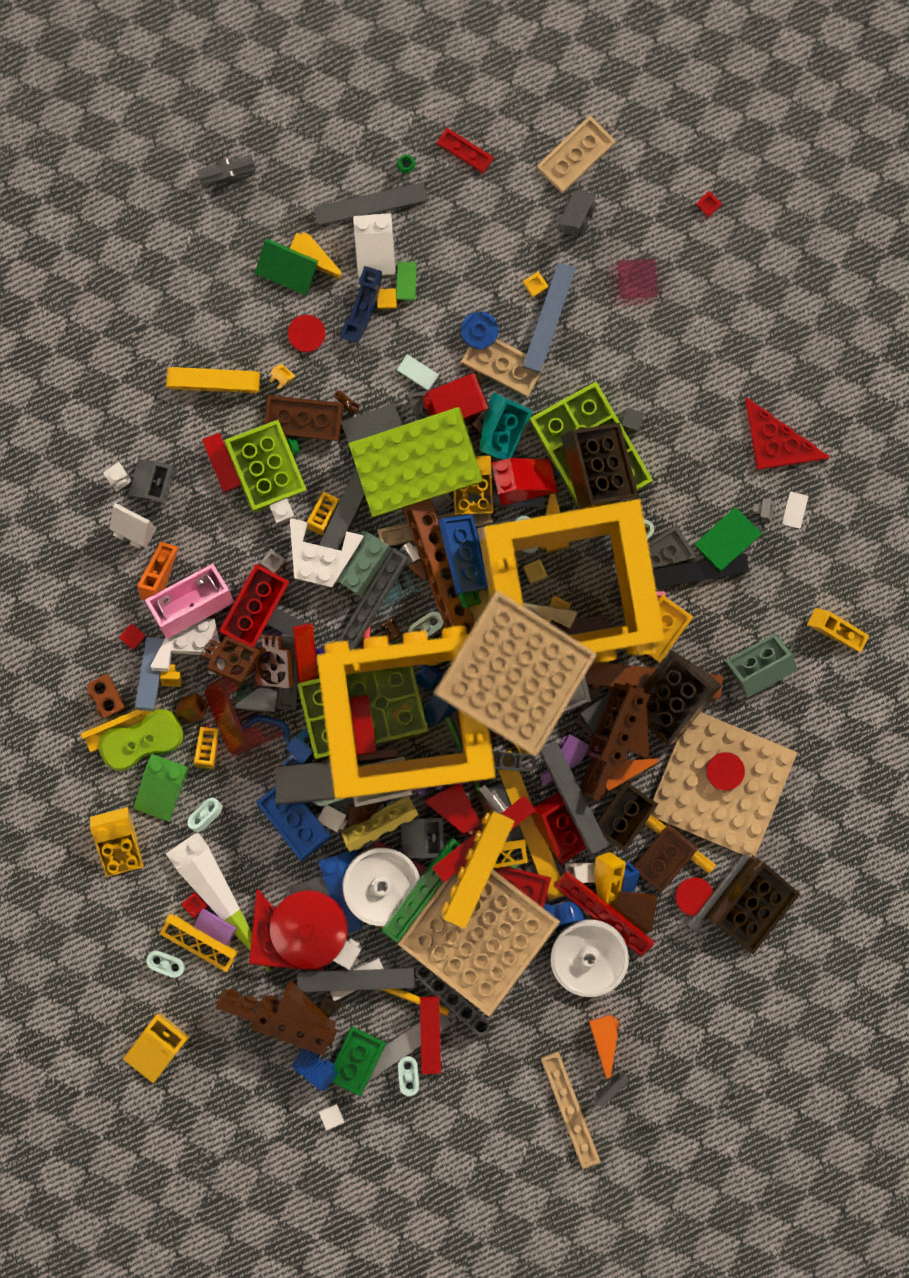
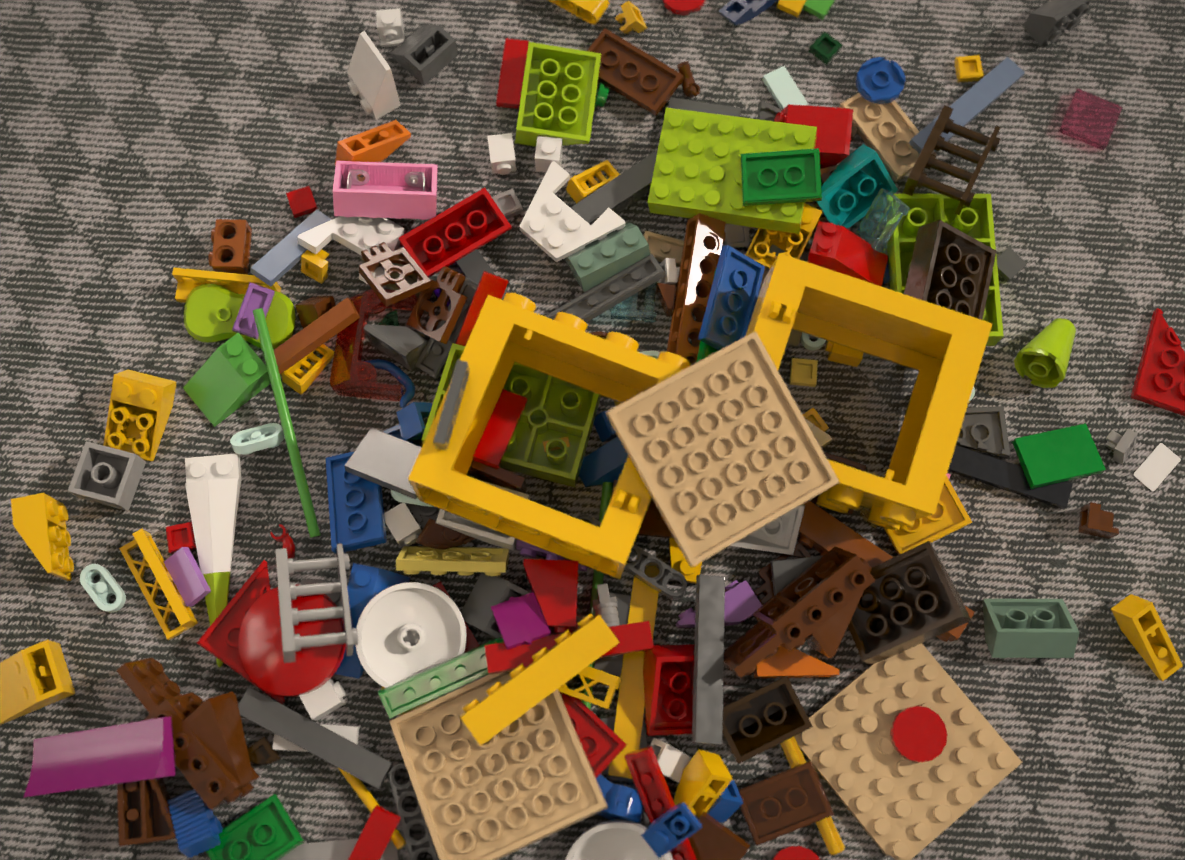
camera: 30 degrees right, 10 degrees down
(104, 948) = (43, 528): none -> yellow slope
(124, 893) = (107, 476): none -> light grey brick
(152, 733) = (255, 298): none -> medium lavender tile
(201, 729) = (315, 334): none -> dark orange tile
(218, 794) = (286, 423): none -> bright green piece
(236, 1063) = (102, 757): none -> magenta arch
(250, 528) = (502, 153): none -> white brick
(268, 874) = (287, 542): none -> red arm
(277, 1075) = (144, 812): none -> reddish brown wedge
(303, 917) = (291, 616): none -> light grey fence
(337, 739) = (452, 405): none -> dark grey tile
(428, 322) = (825, 48): none -> dark green tile
(444, 839) = (520, 620): none -> magenta piece
(453, 456) = (781, 177): none -> green tile
(533, 439) = (882, 219): none -> clear light blue plate
(542, 364) = (936, 143): none -> dark brown fence
(604, 913) = (671, 829): none -> blue slope
(688, 472) = (1047, 354): none -> lime cone
(773, 570) = (1096, 521): none -> reddish brown panel

